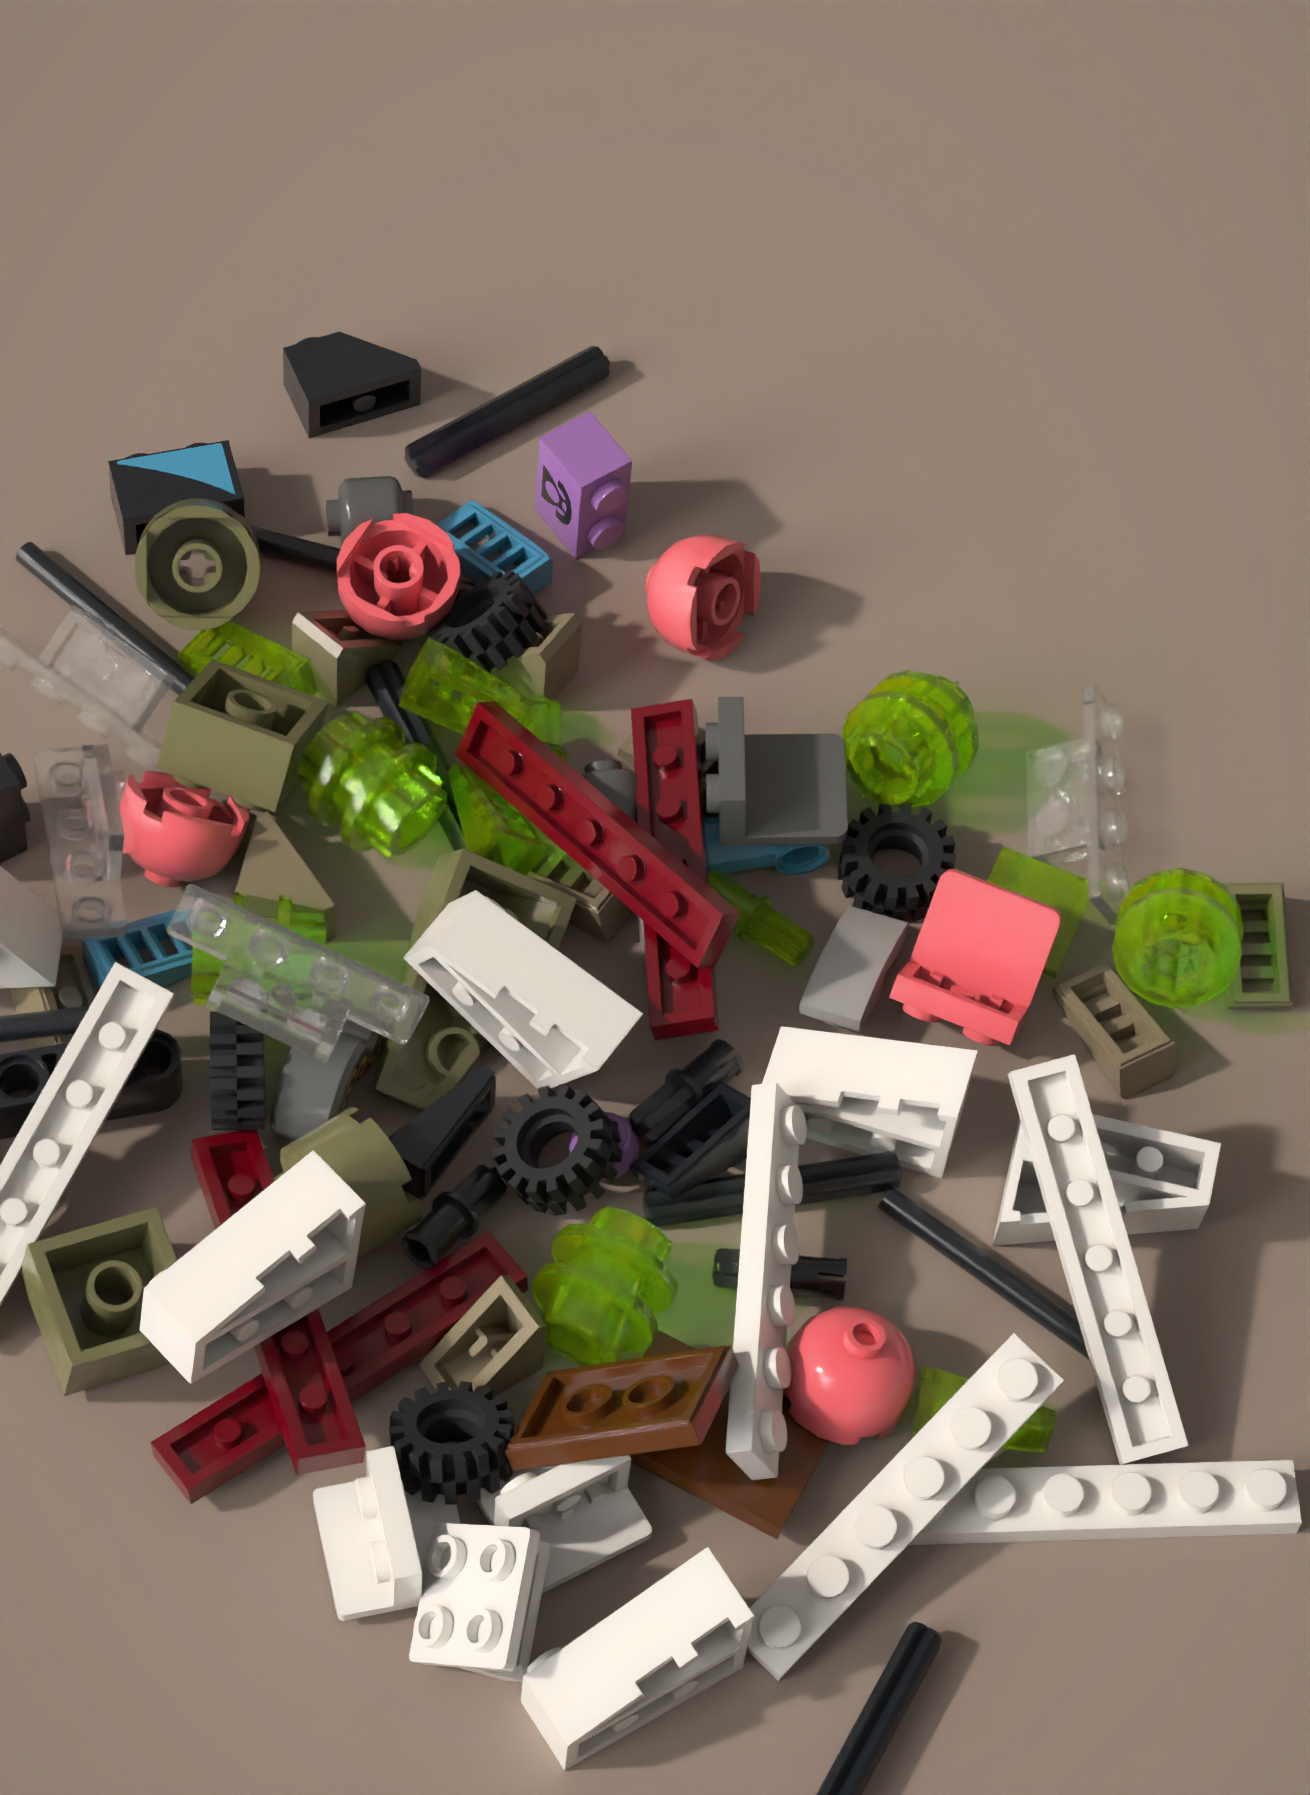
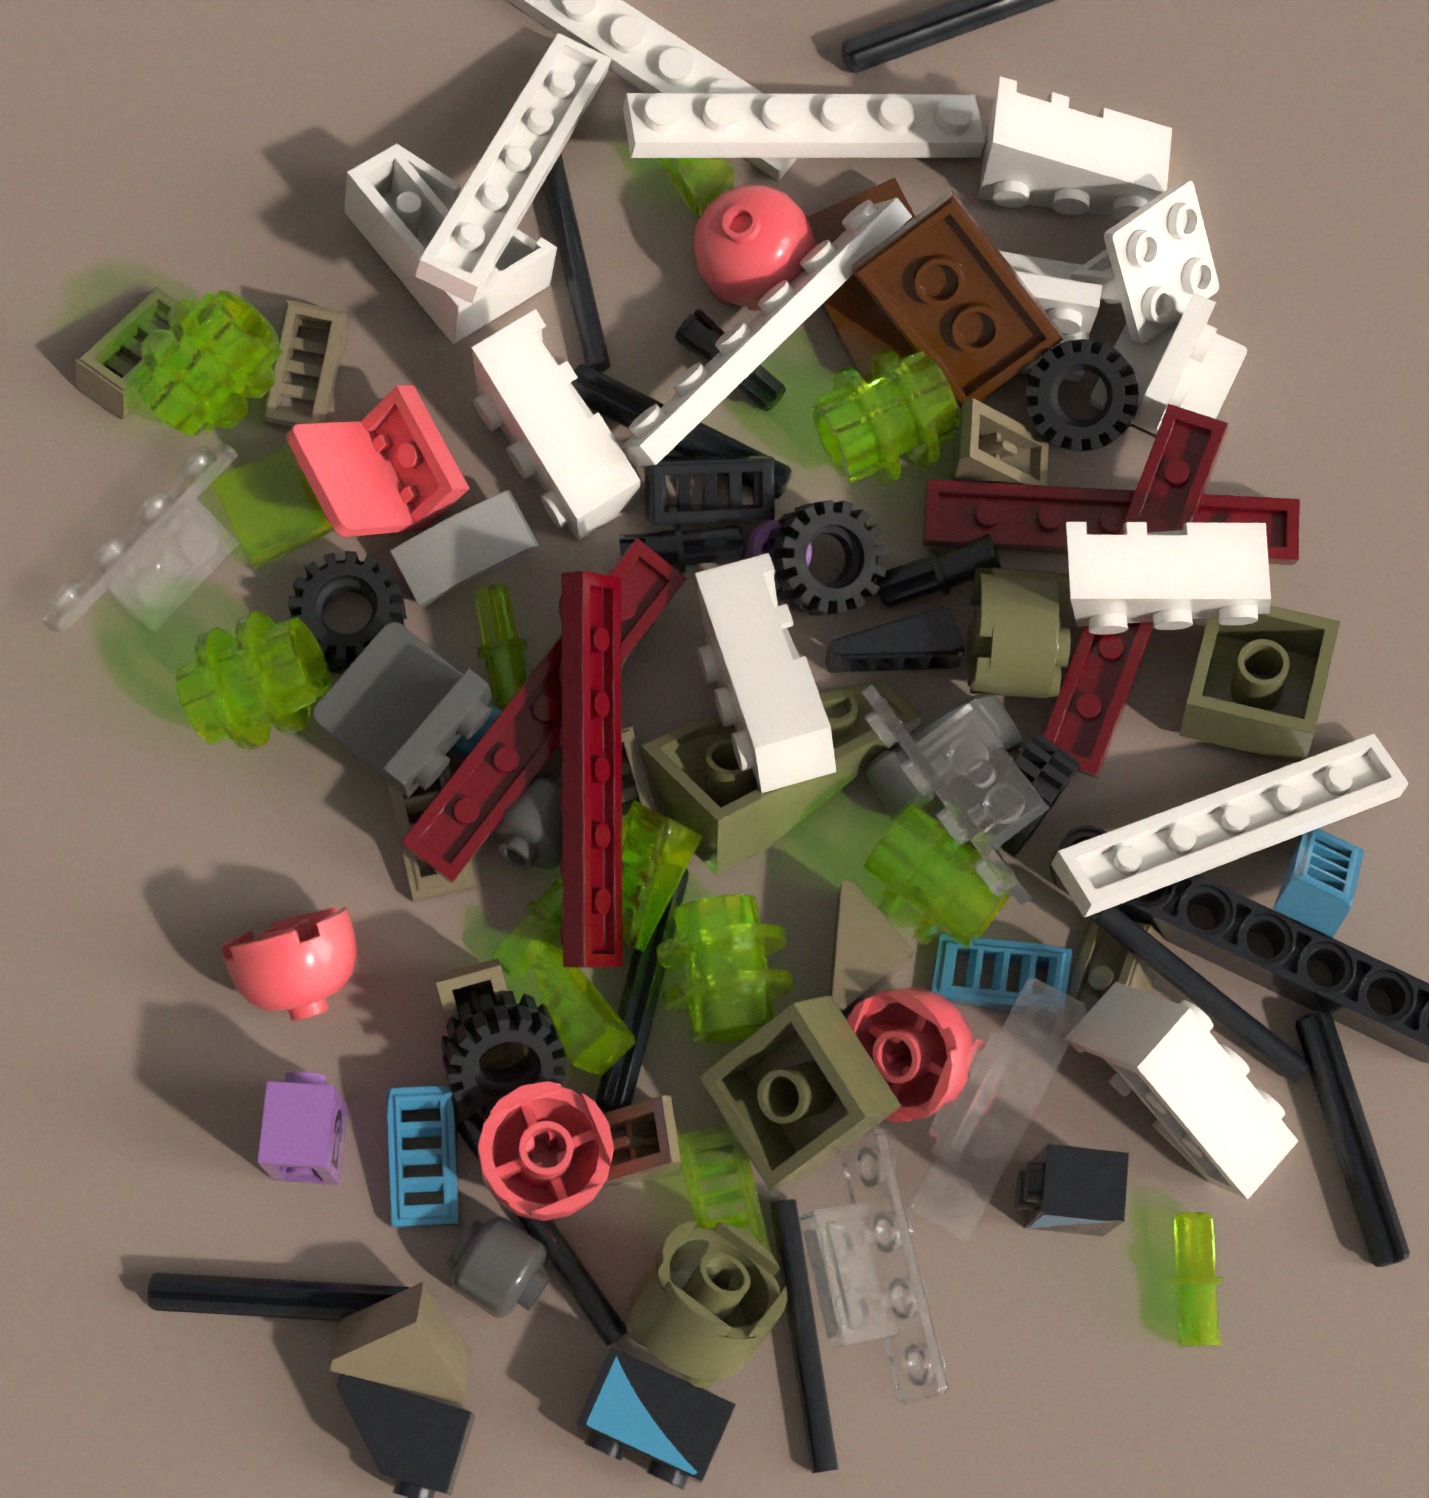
camera: 140 degrees left, 15 degrees up
(389, 419) = (404, 1345): none -> dark tan slope

